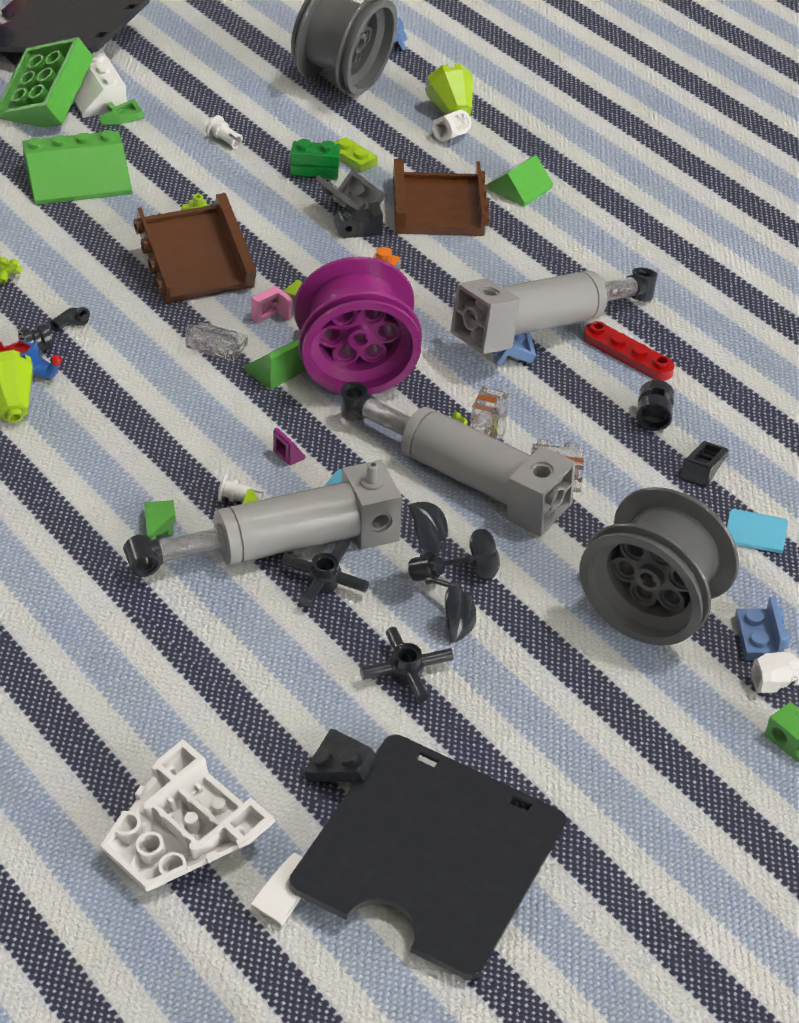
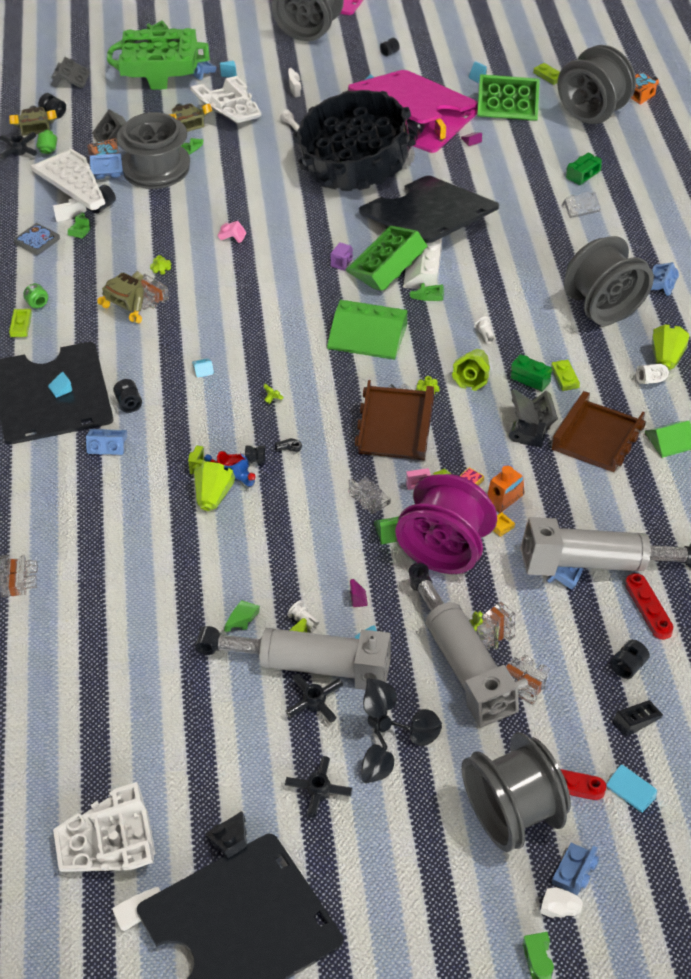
camera: 35 degrees right, 5 degrees up
(245, 174) = (472, 369): none -> lime cone

